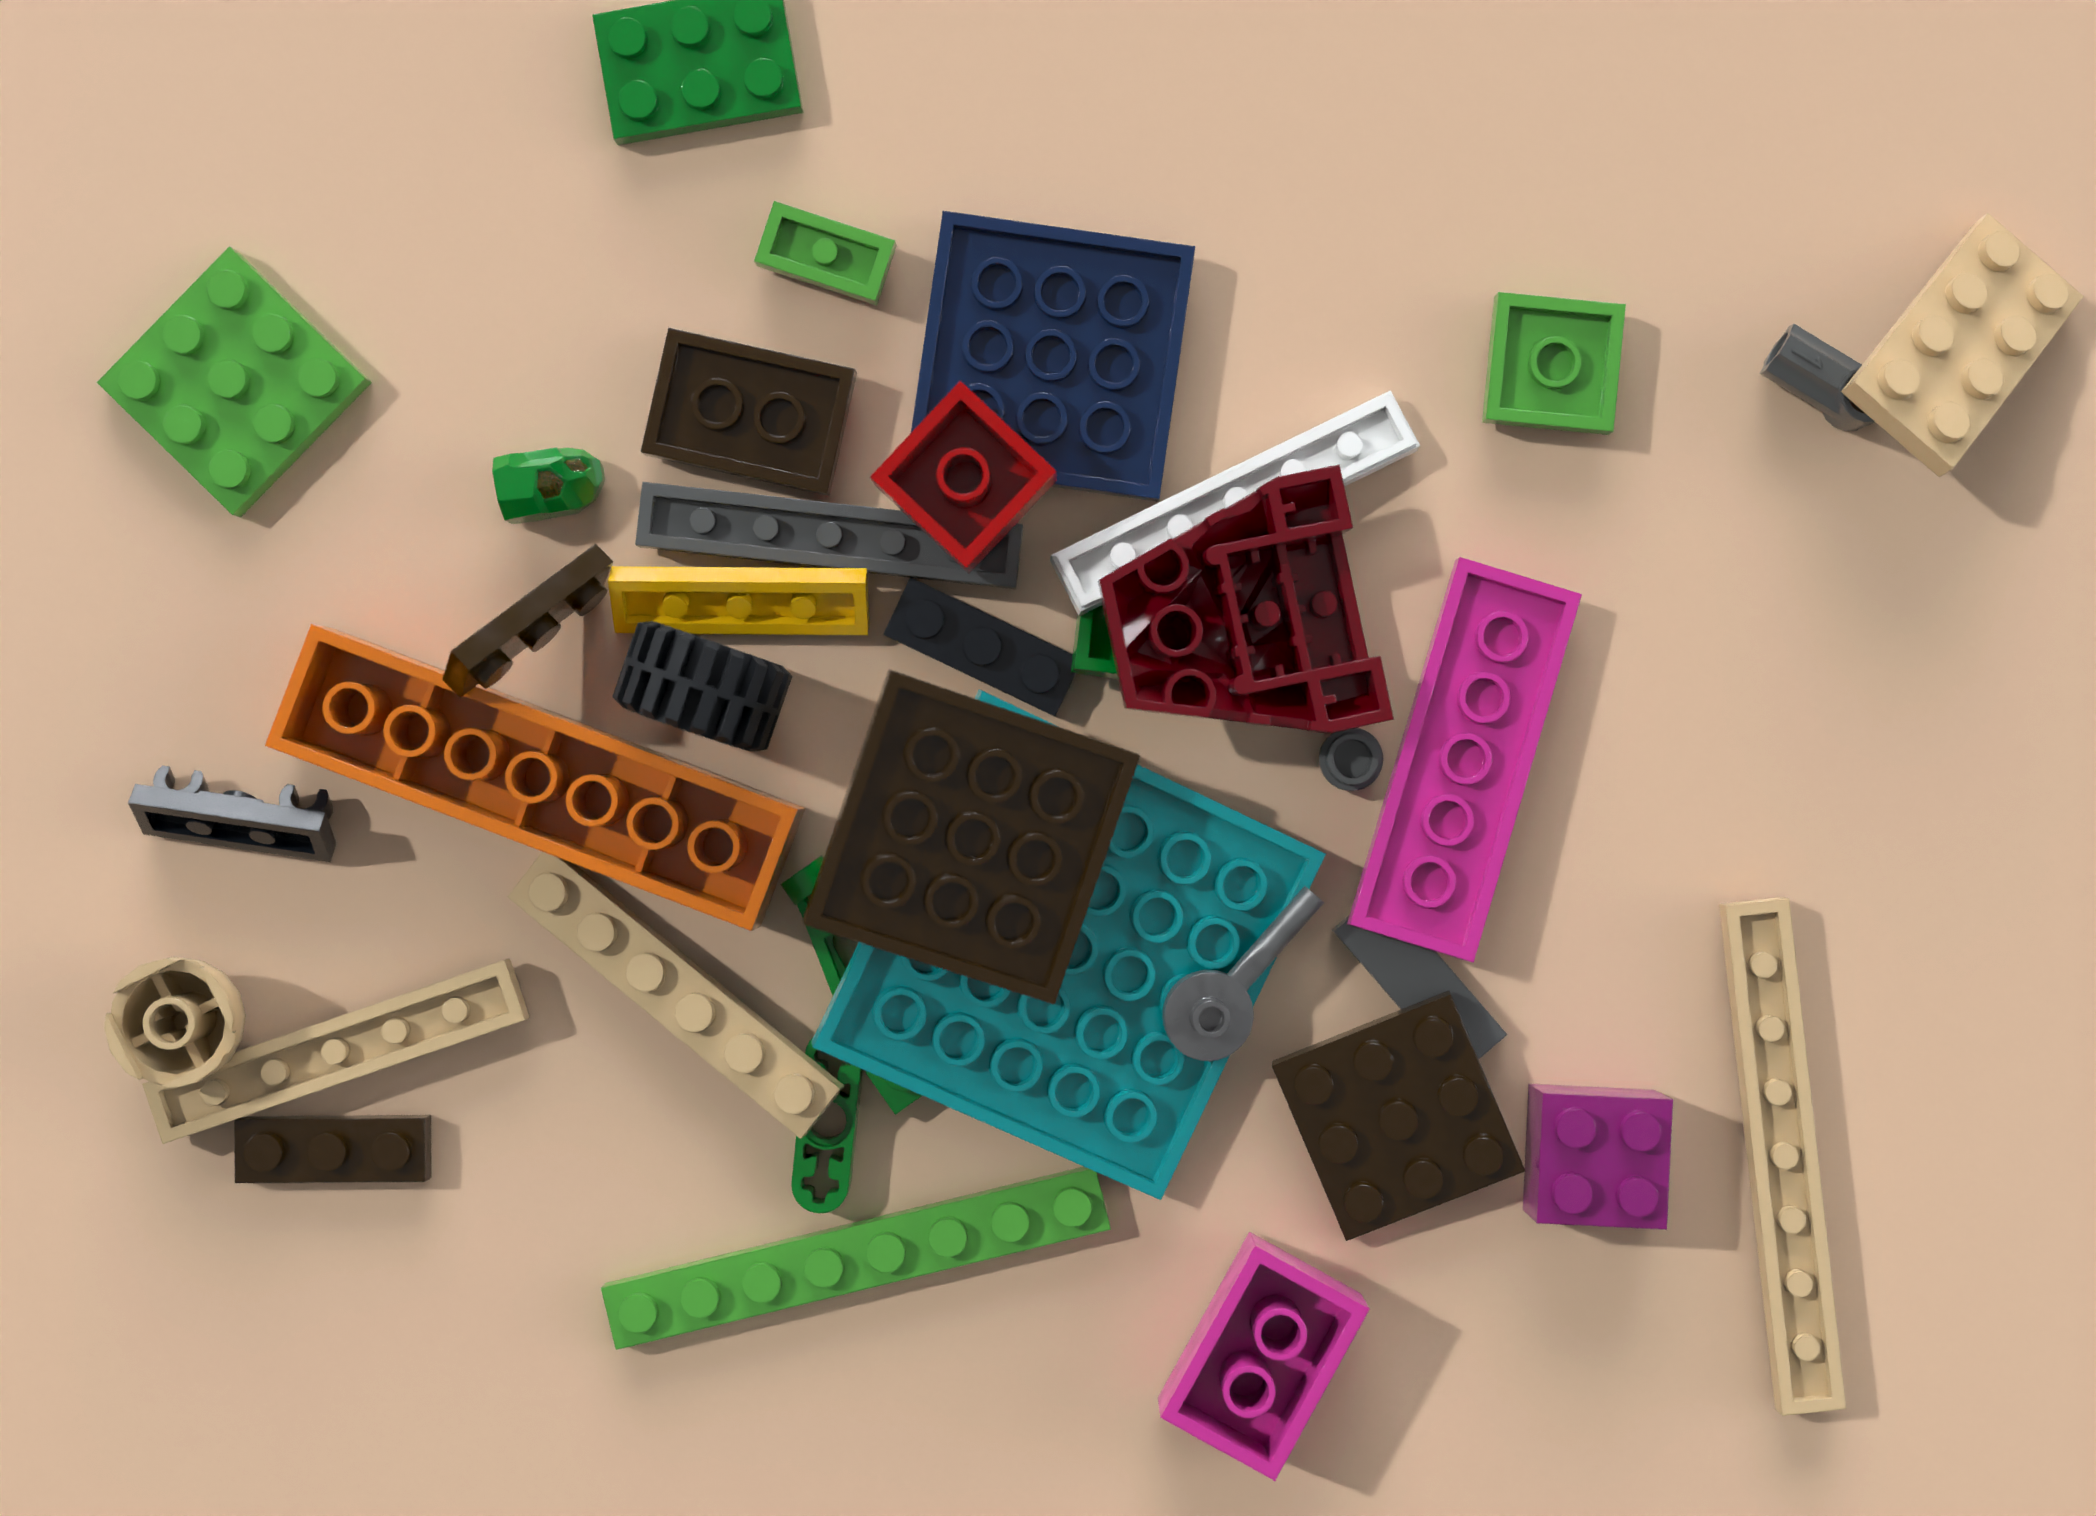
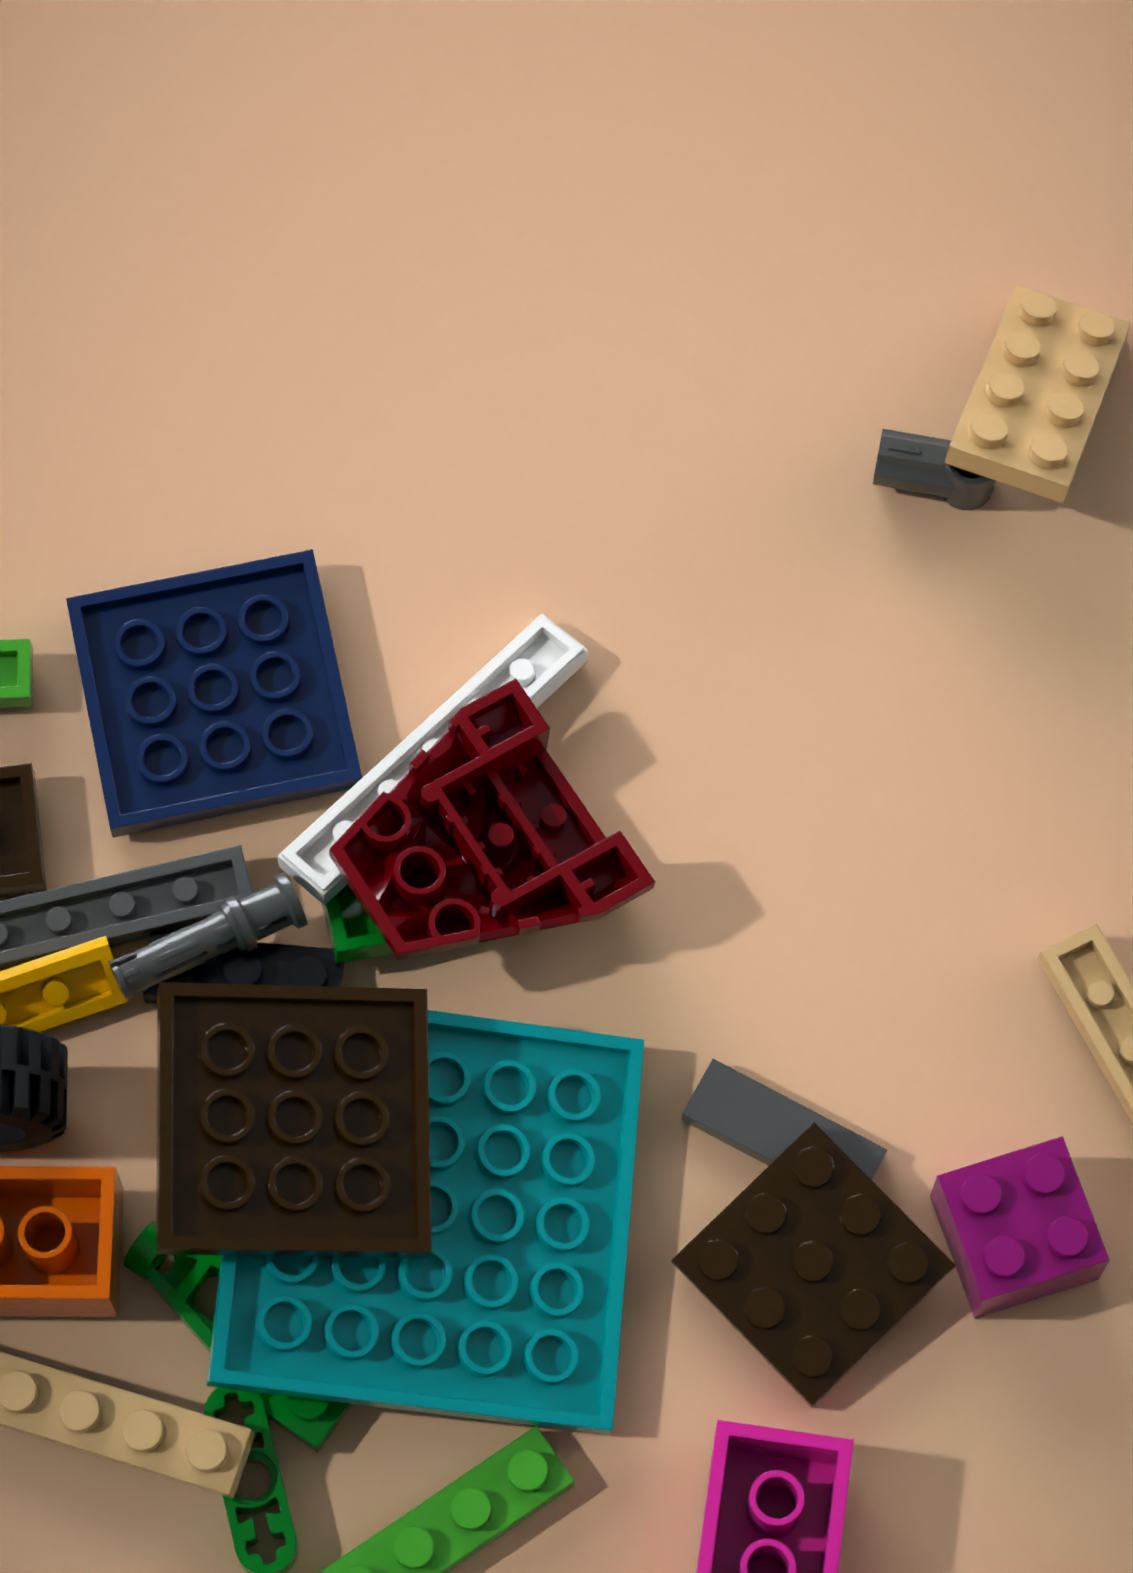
camera: 20 degrees left, 20 degrees down
(964, 477) = (169, 810): red brick -> none
(991, 608) = (236, 925): none -> dark grey pin
(1210, 1010) = (589, 1222): flat silver piece -> none
(1351, 759) = (635, 951): dark grey plate -> none
(1464, 759) = (741, 913): dark pink plate -> none
(1553, 363) = (681, 539): bright green plate -> none

